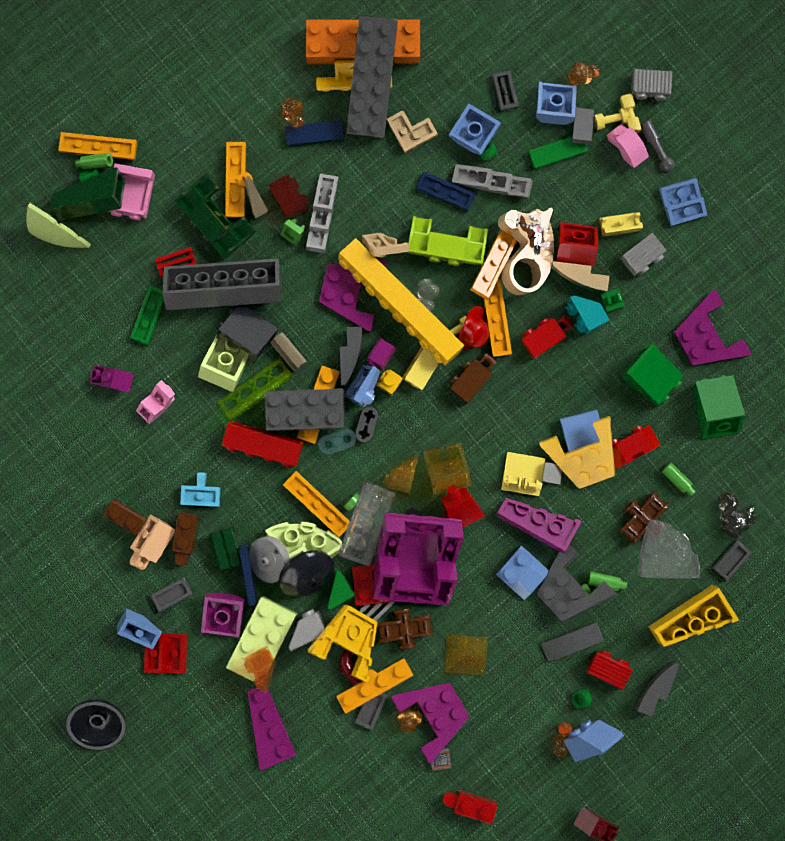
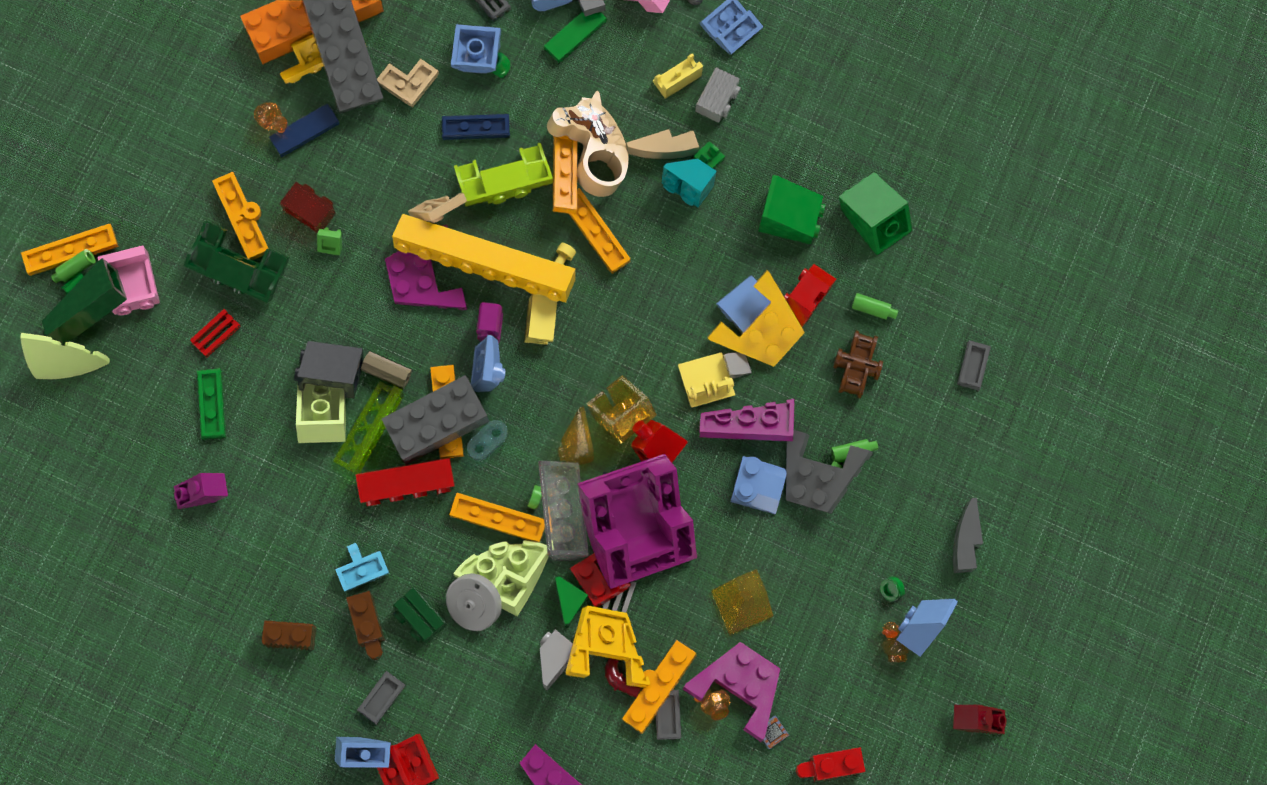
camera: 30 degrees left, 10 degrees down
(151, 542) = (330, 648): light nougat brick -> none
(156, 402) = (265, 491): bright pink brick -> none
(222, 284) = (278, 329): dark grey brick -> none
(222, 614) = (450, 690): magenta slope -> none
(248, 574) = (457, 631): dark blue tile -> none
(257, 205) = (275, 228): dark tan slope -> none
(262, 666) = (523, 719): clear orange slope -> none
(266, 627) = (508, 697): yellowish green brick -> none
(306, 573) = (522, 596): black dish -> none
(322, 213) = (353, 208): light grey slope -> none
(350, 354) = (455, 339): dark grey slope -> none
(362, 423) = (505, 408): dark grey beam -> none
(389, 381) = (513, 349): yellow brick -> none
(412, 627) = (667, 602): reddish brown axle -> none
(426, 292) = (508, 235): clear animal -> none
(472, 379) = (601, 305): reddish brown brick -> none
(475, 329) = (578, 251): red piece -> none
(492, 181) = (520, 94): light grey slope -> none
(545, 336) = (657, 225): red brick -> none
(572, 641) = (850, 531): dark grey slope -> none
(577, 244) = (643, 115): red slope -> none
(609, 670) = (905, 542): red brick -> none
(667, 553) = (901, 388): clear brick -> none
(700, 613) = (967, 439): yellow wedge -> none
(701, 340) = (821, 153): magenta wing -> none
(731, 518) = (952, 321): clear smoke animal -> none

